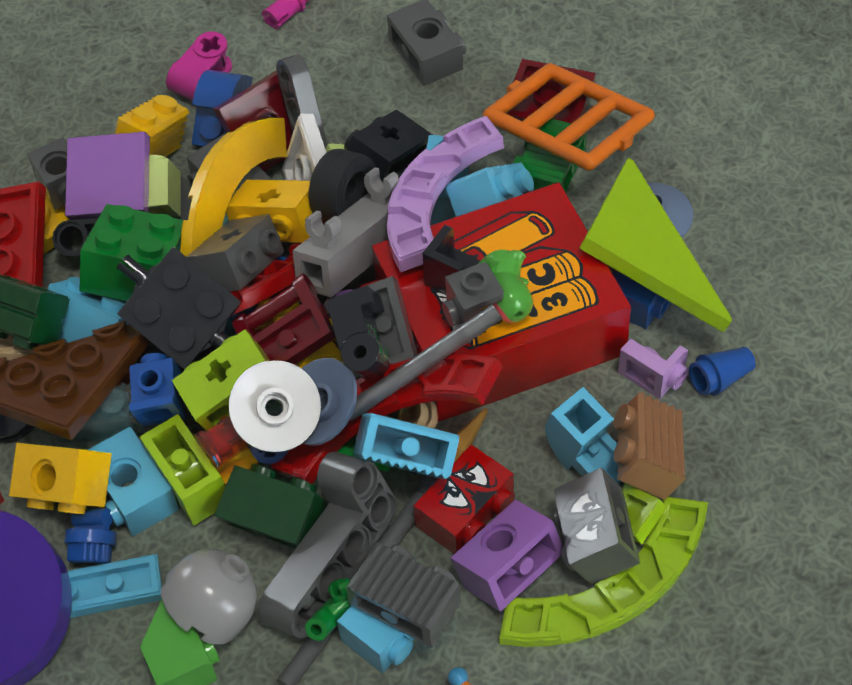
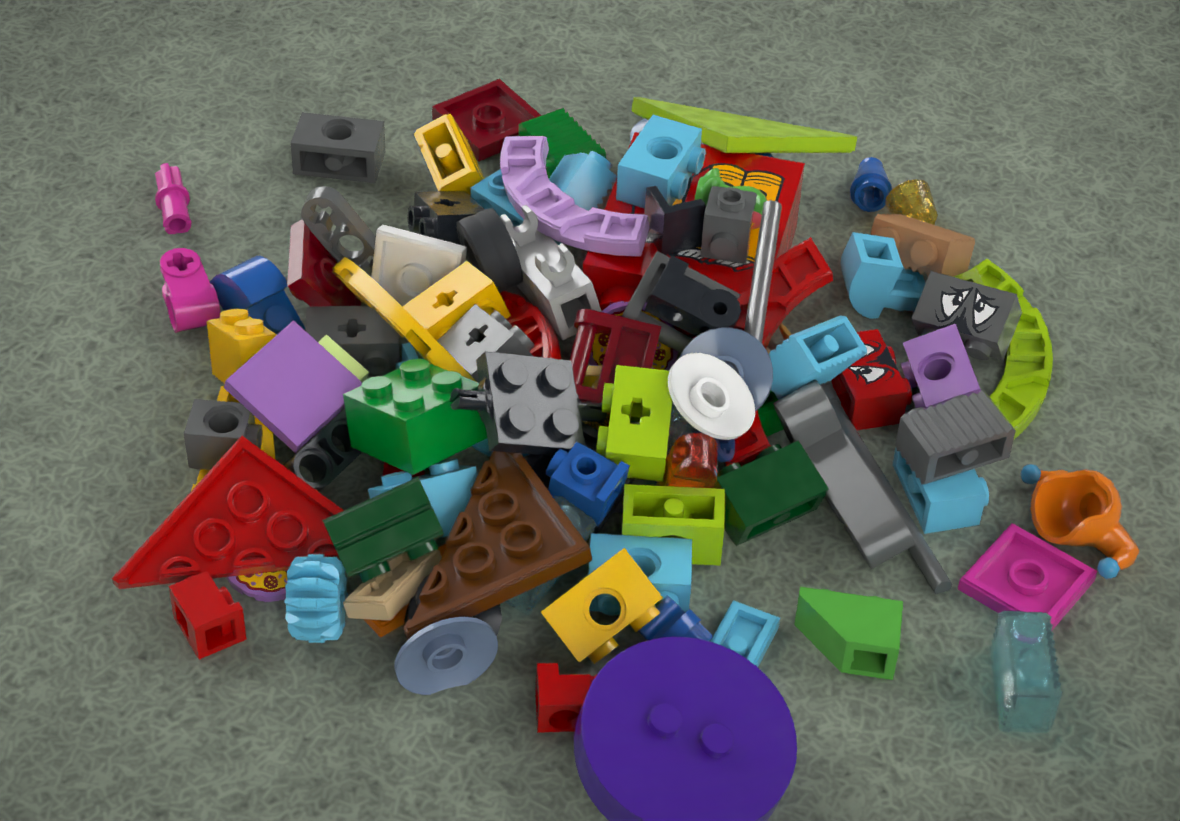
camera: 60 degrees left, 10 degrees down
(211, 594) = (833, 559): light grey cylinder -> none
(326, 617) = (910, 502): green arm -> none
(459, 101) = (448, 155): none -> yellow brick
(512, 216) = (662, 157): none -> medium azure brick
(561, 144) = (554, 82): orange bar -> none
(650, 371) = (835, 215): lavender bracket -> none
(716, 415) = (912, 200): none -> clear yellow hat

